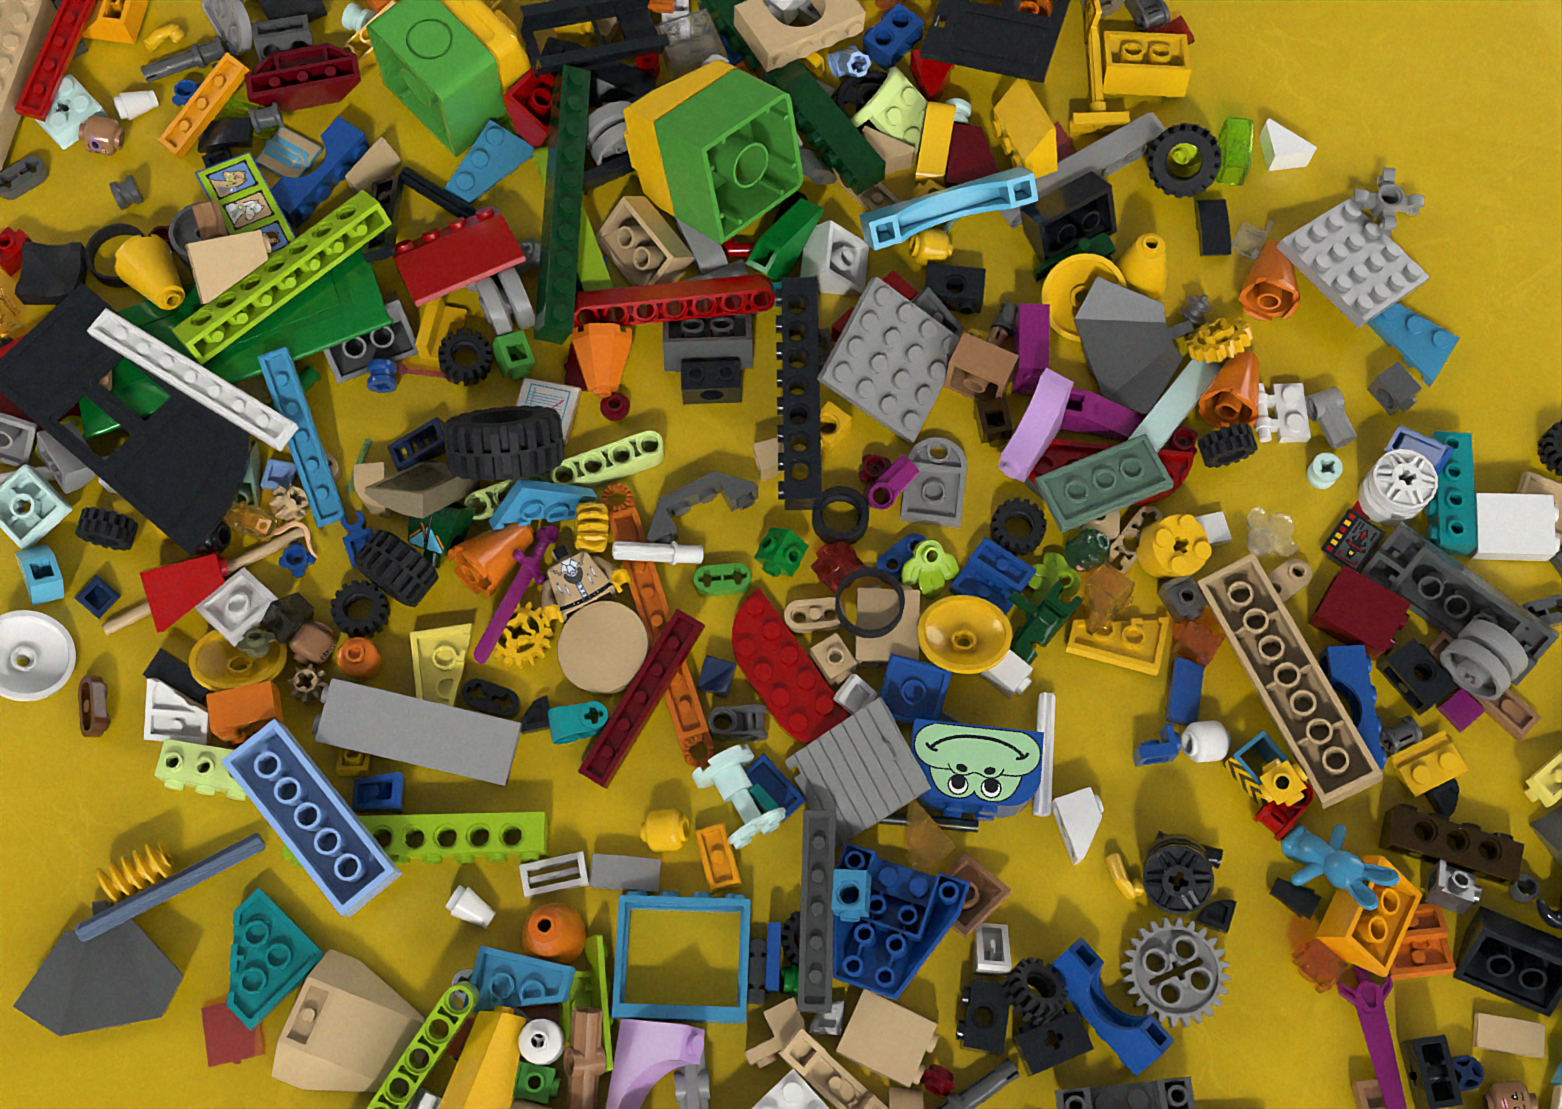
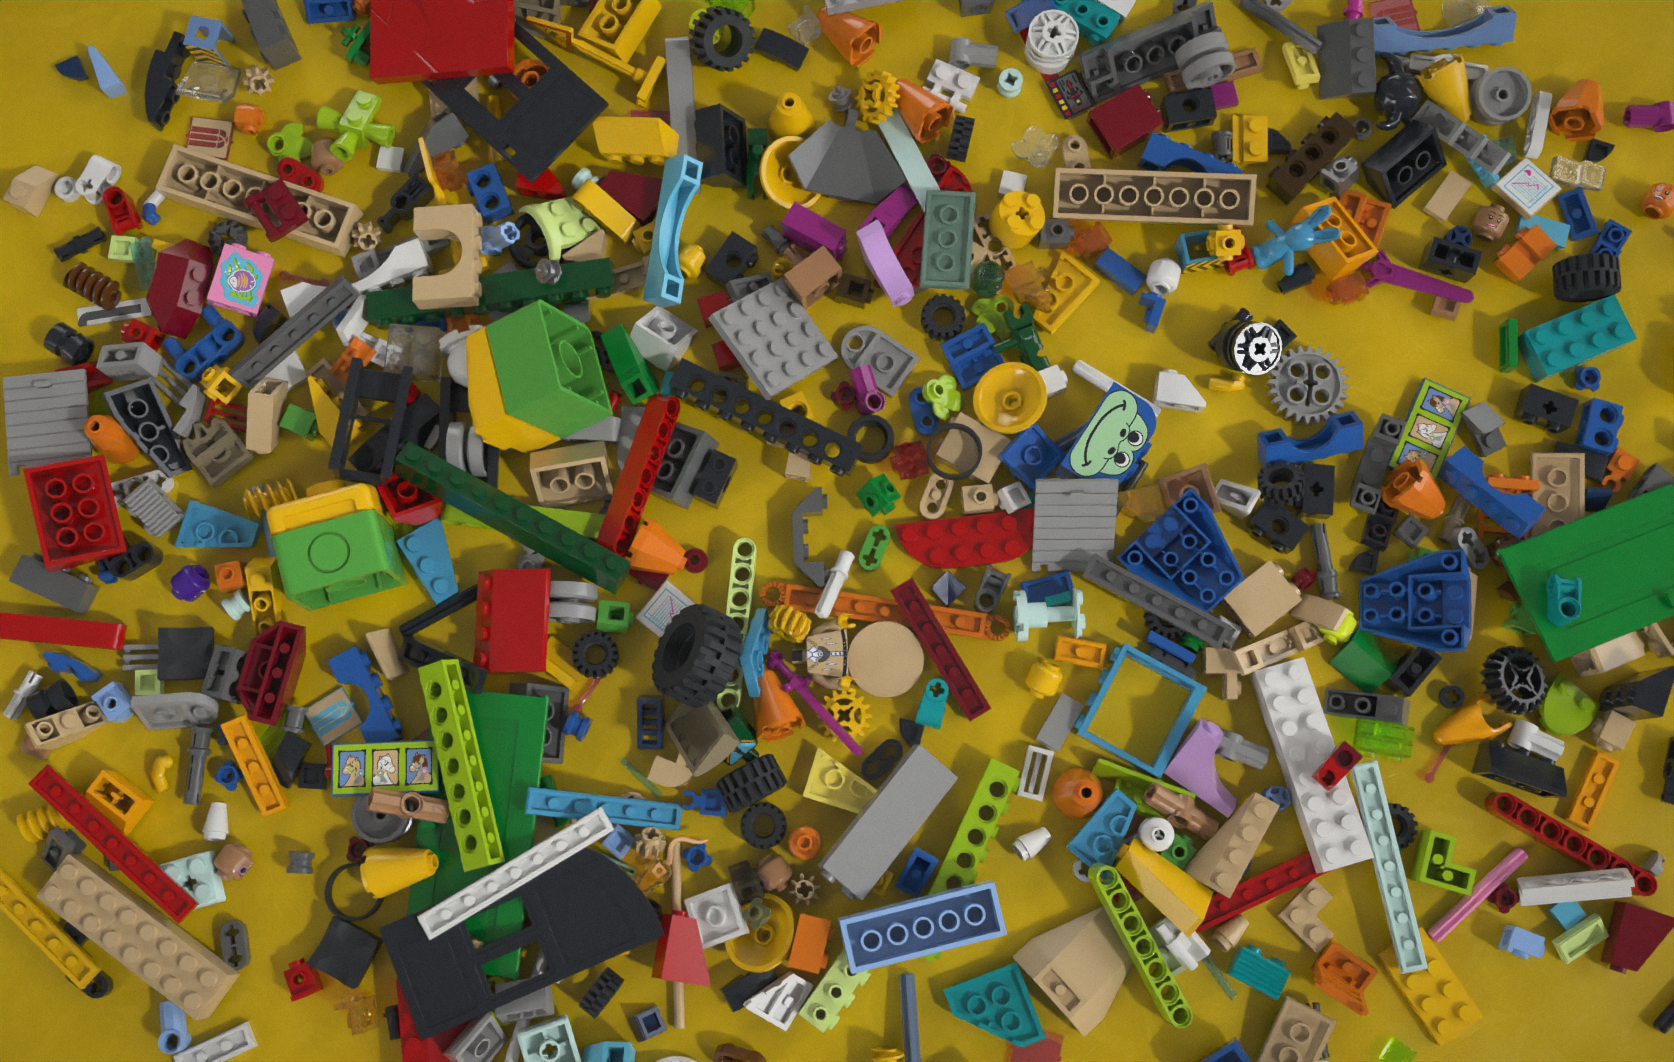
camera: 60 degrees left, 10 degrees up
(225, 261) = (431, 803): tan slope -> none
(836, 111) = (548, 271): none -> flat silver wheel
(851, 880) = (1149, 568): dark azure brick -> none

